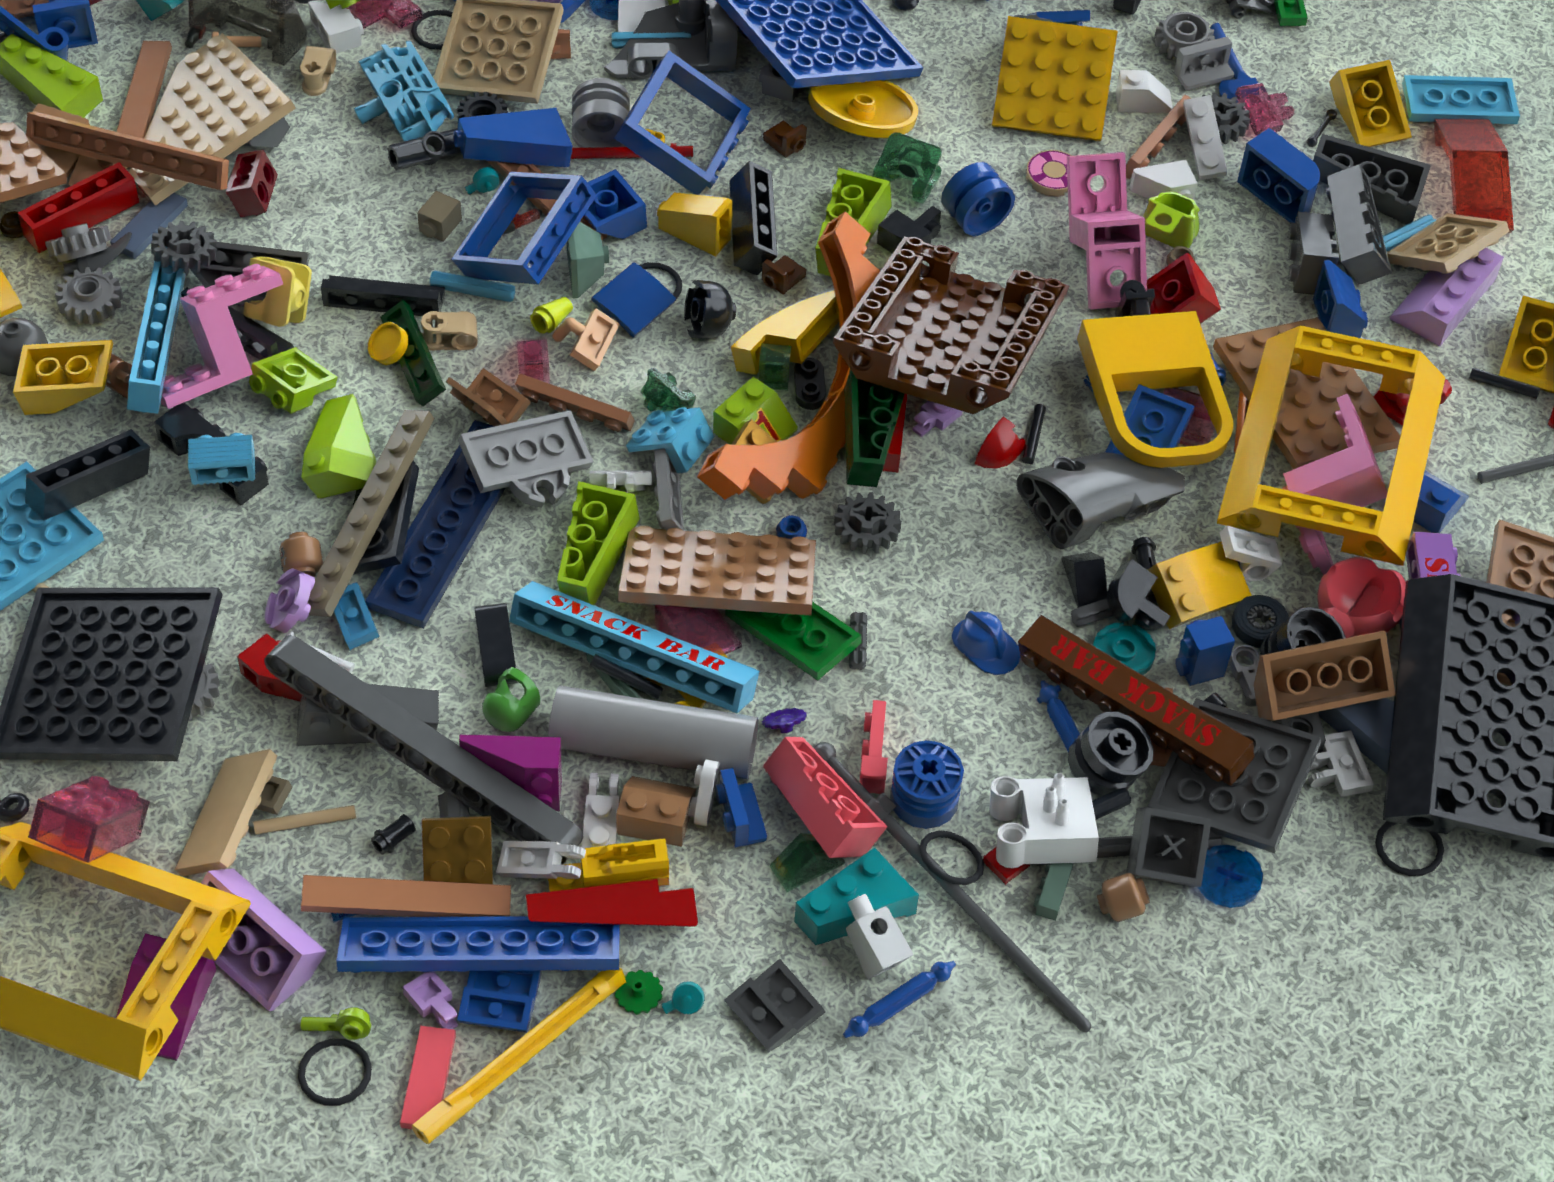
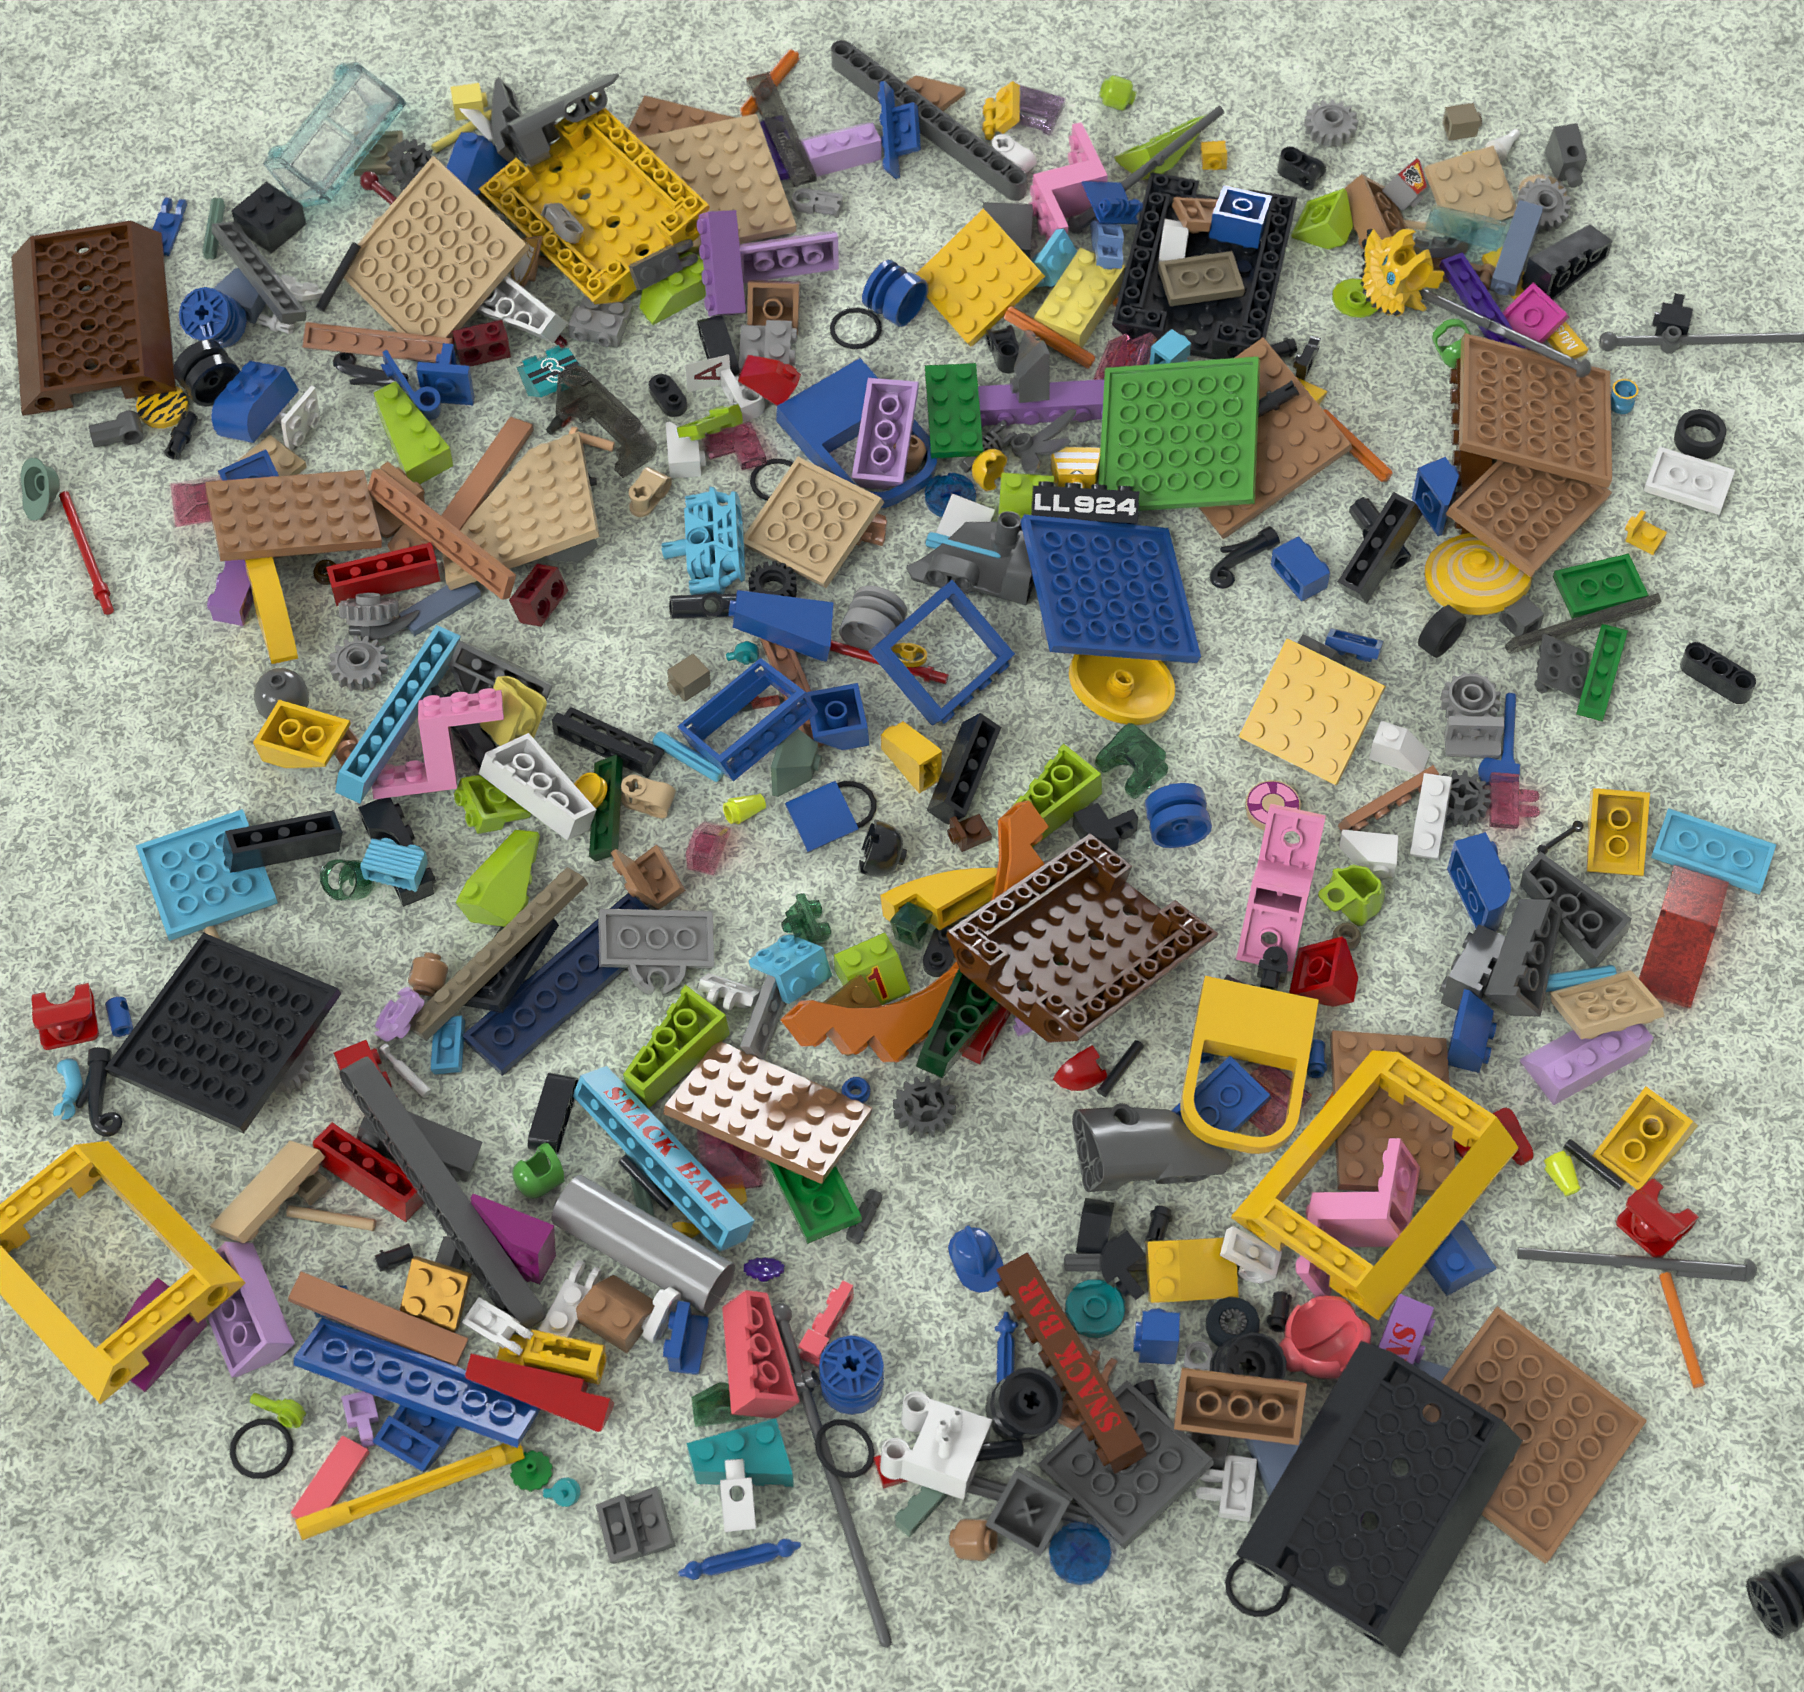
camera: 25 degrees right, 5 degrees up
(89, 818) = (153, 1161): clear pink brick -> none
(174, 483) = (350, 871): none -> clear green helmet
(183, 246) = (445, 648): dark grey gear -> none
(330, 758) = (368, 1172): none -> red brick
(337, 349) = (538, 785): none -> white wedge
(585, 407) = (713, 897): nougat plate -> none
(593, 337) = (767, 843): light nougat plate -> none
(786, 138) = (1038, 692): reddish brown bracket -> none
(1297, 593) = (1279, 1311): none -> black pin
(1483, 397) = (1562, 1172): none -> neon yellow cone

